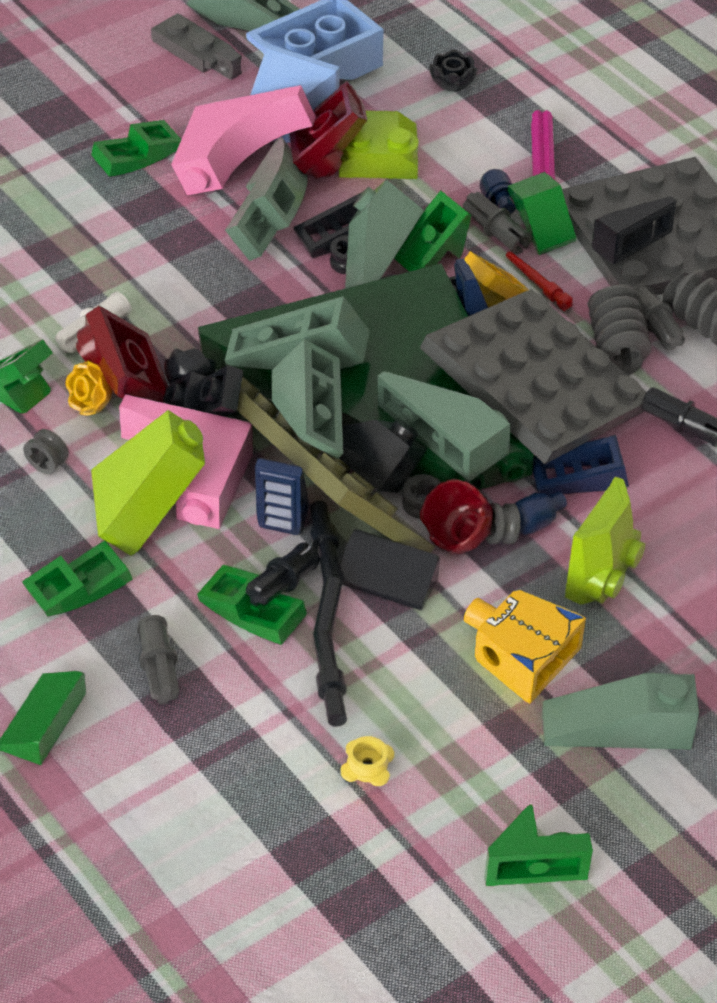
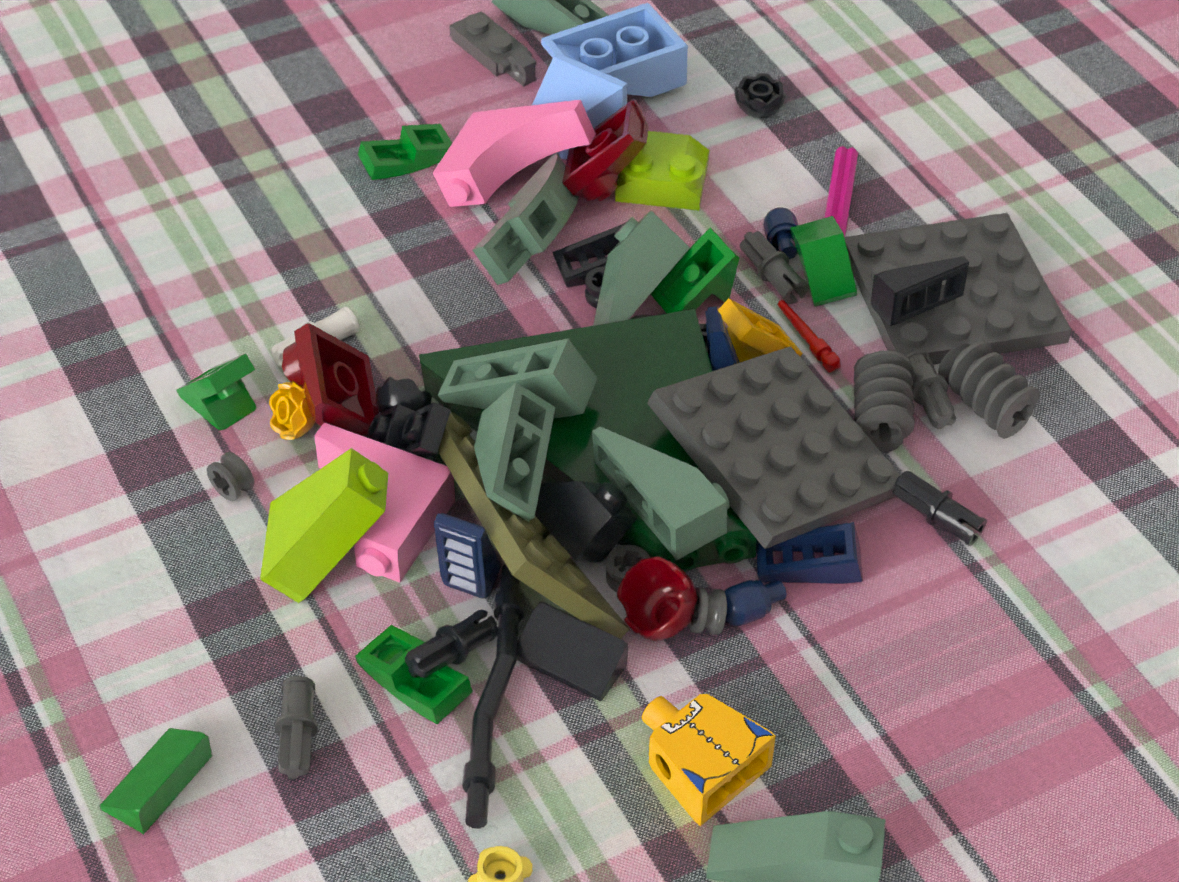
camera: 10 degrees right, 0 degrees up
(69, 586) = (221, 631): green slope -> none
(604, 548) = (813, 654): lime slope -> none

